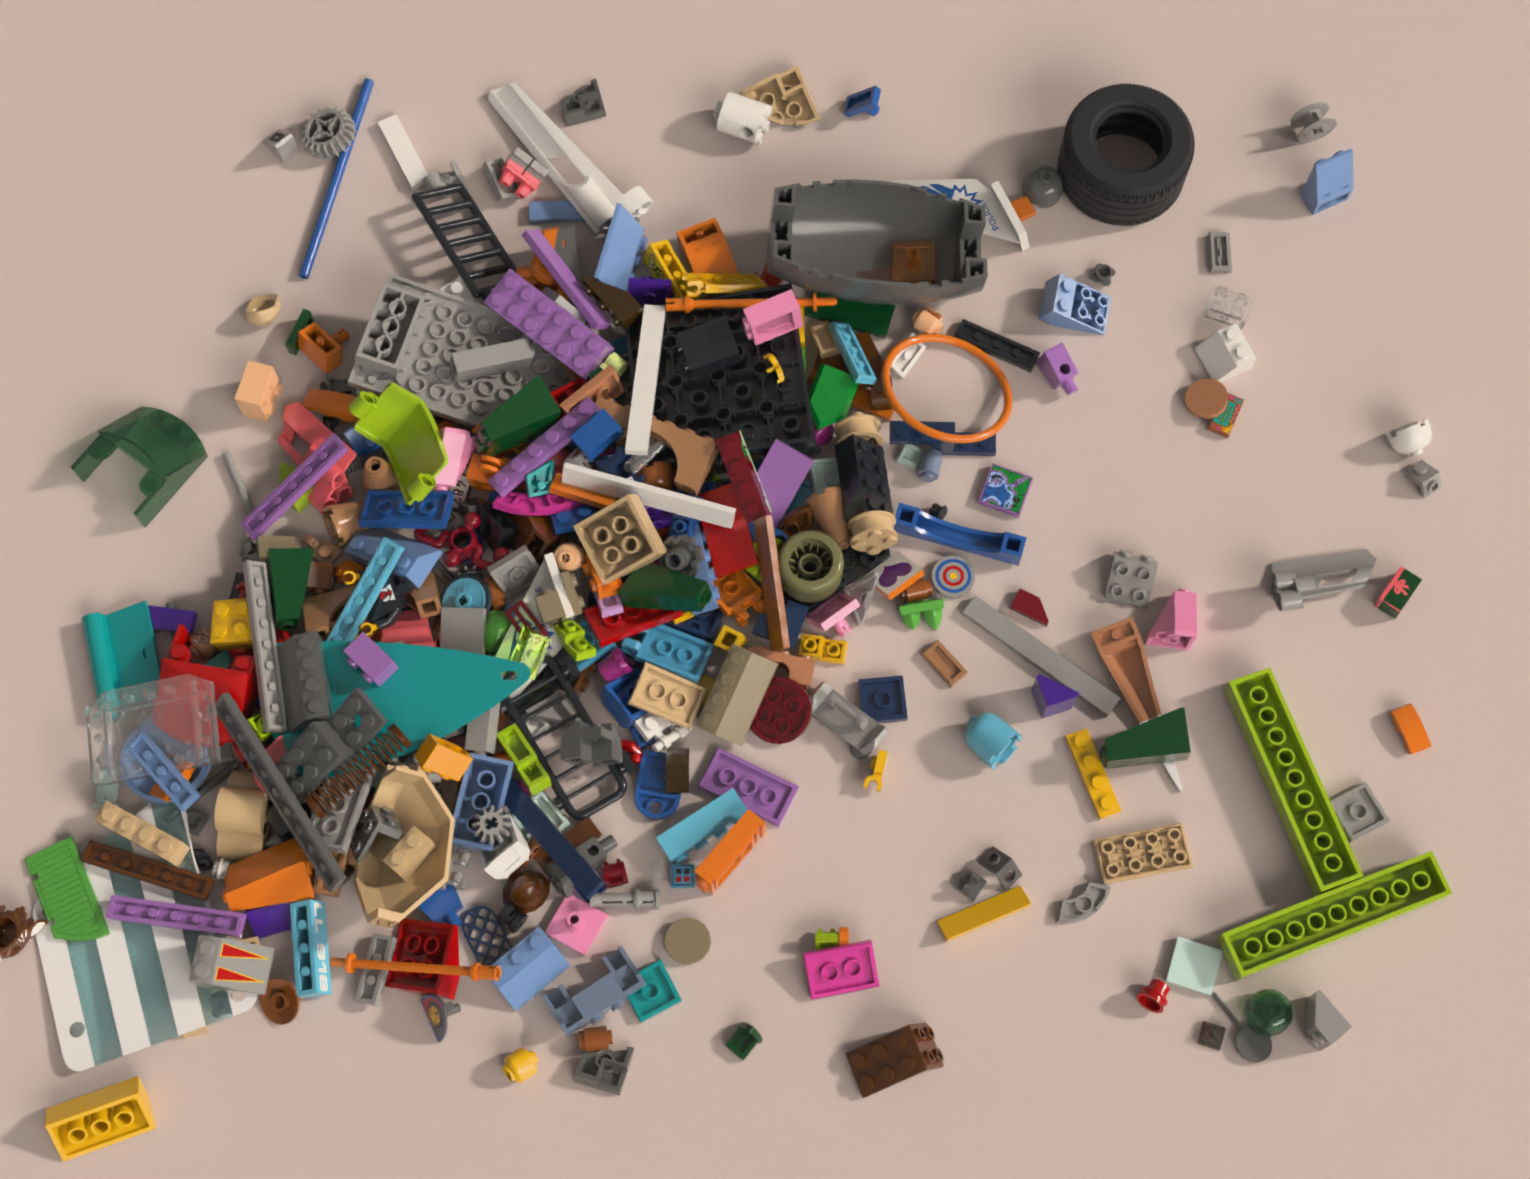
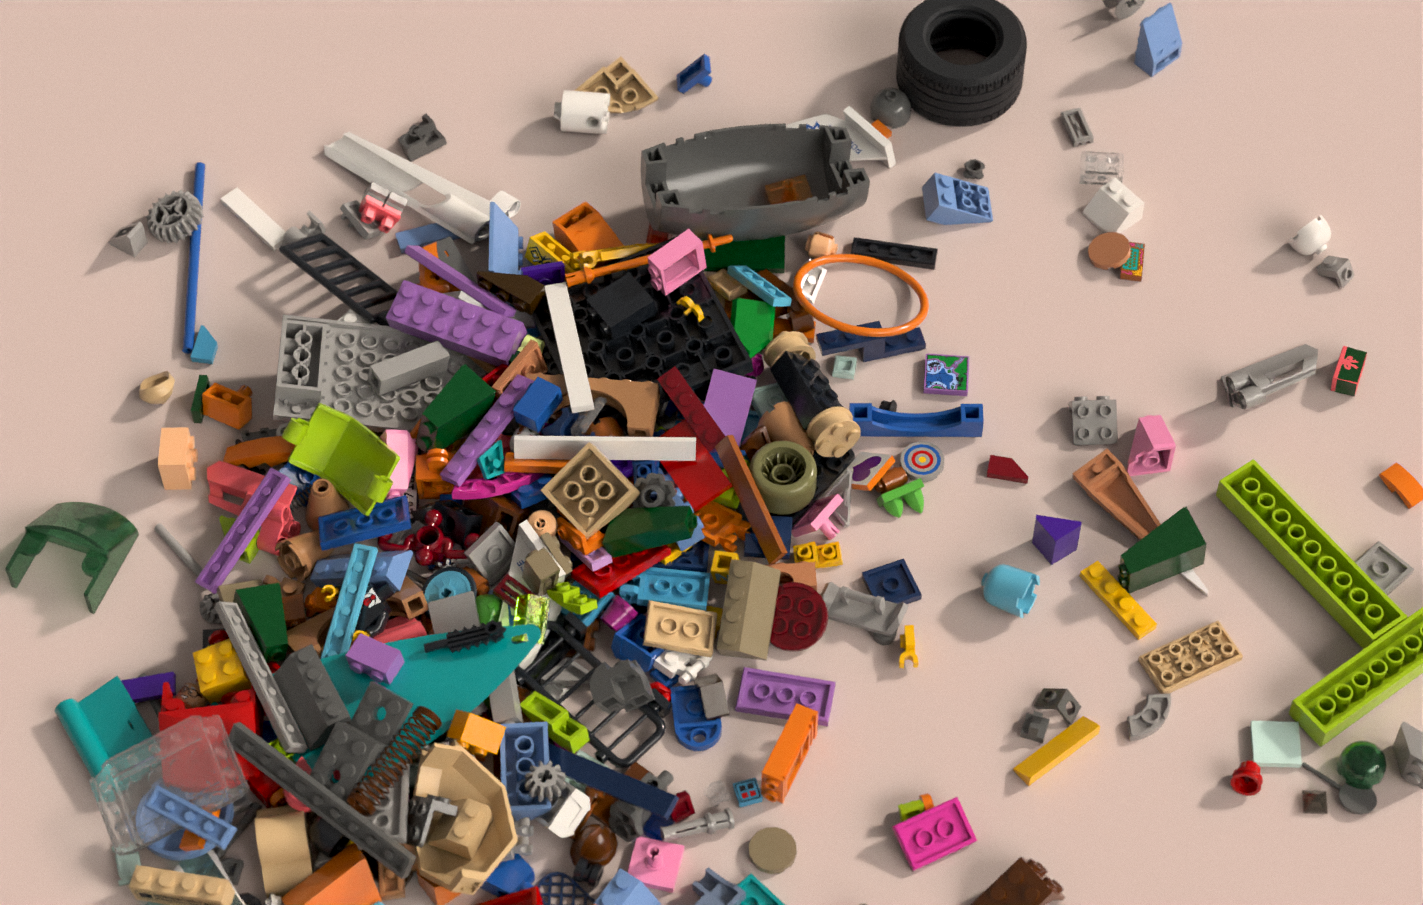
camera: 15 degrees left, 15 degrees down
(320, 277) = (204, 348): none -> dark azure tile
(460, 662) = (466, 638): none -> black piece
(701, 826) = (752, 739): medium azure brick -> none
(930, 465) = (866, 369): sand blue brick -> none
(944, 663) = (940, 539): medium nougat tile -> none
(1041, 656) = (1027, 507): light grey tile -> none
(1058, 368) = (960, 255): medium lavender torso -> none

